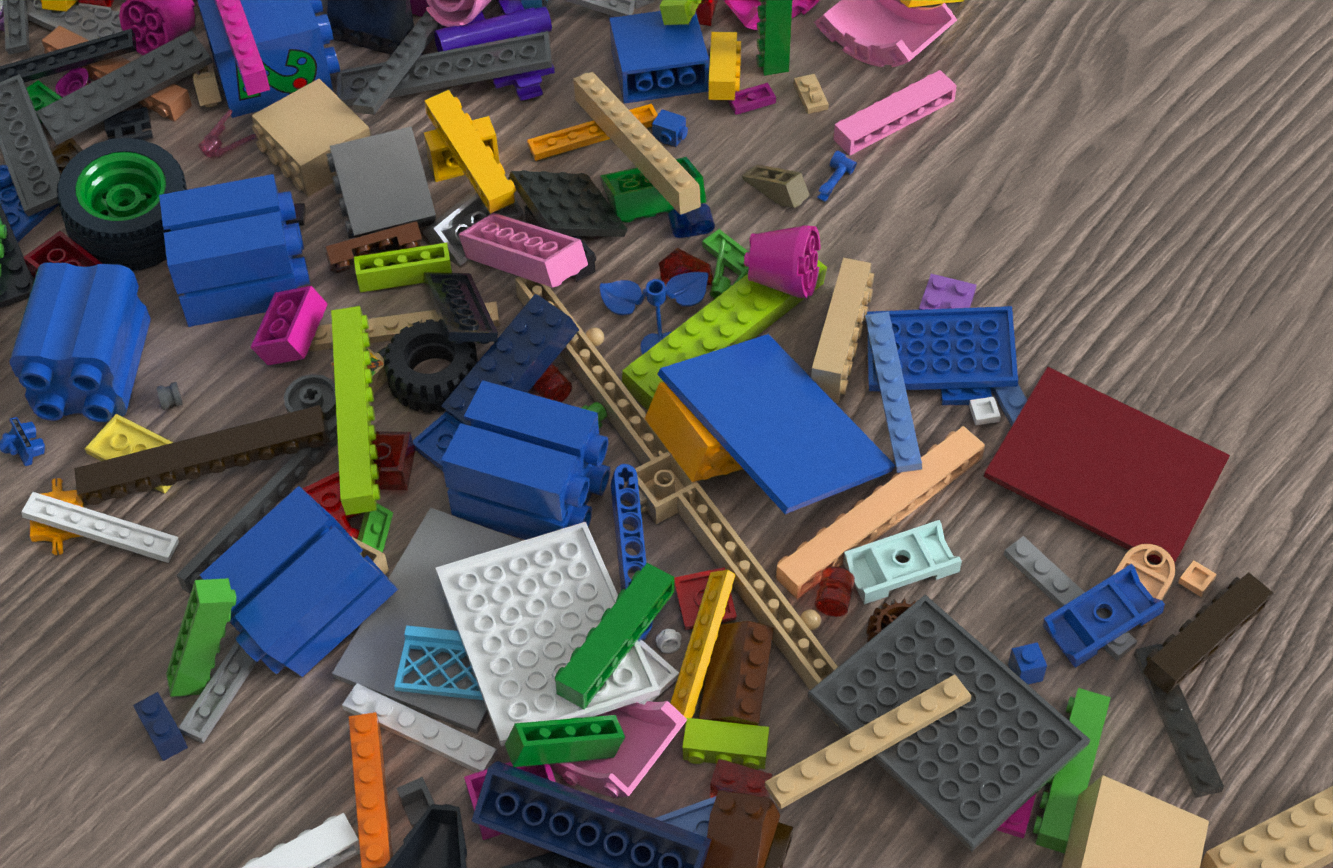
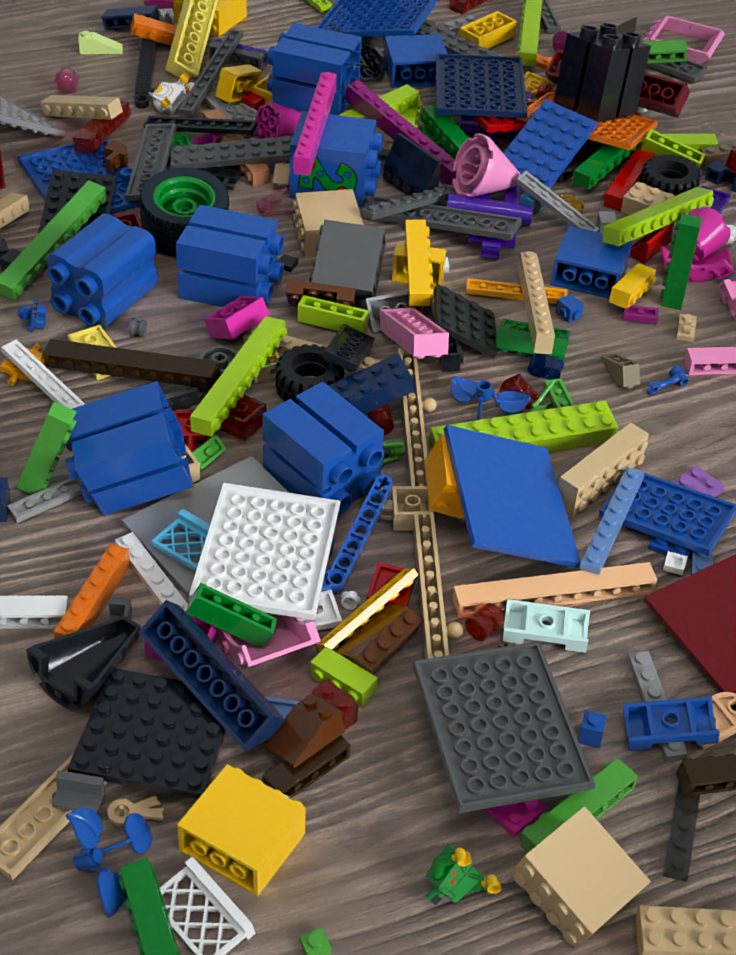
camera: 25 degrees right, 10 degrees down
(614, 635) = (307, 568): green brick -> none
(785, 260) = (586, 404): dark pink cone -> none
(867, 741) = (432, 707): tan plate -> none

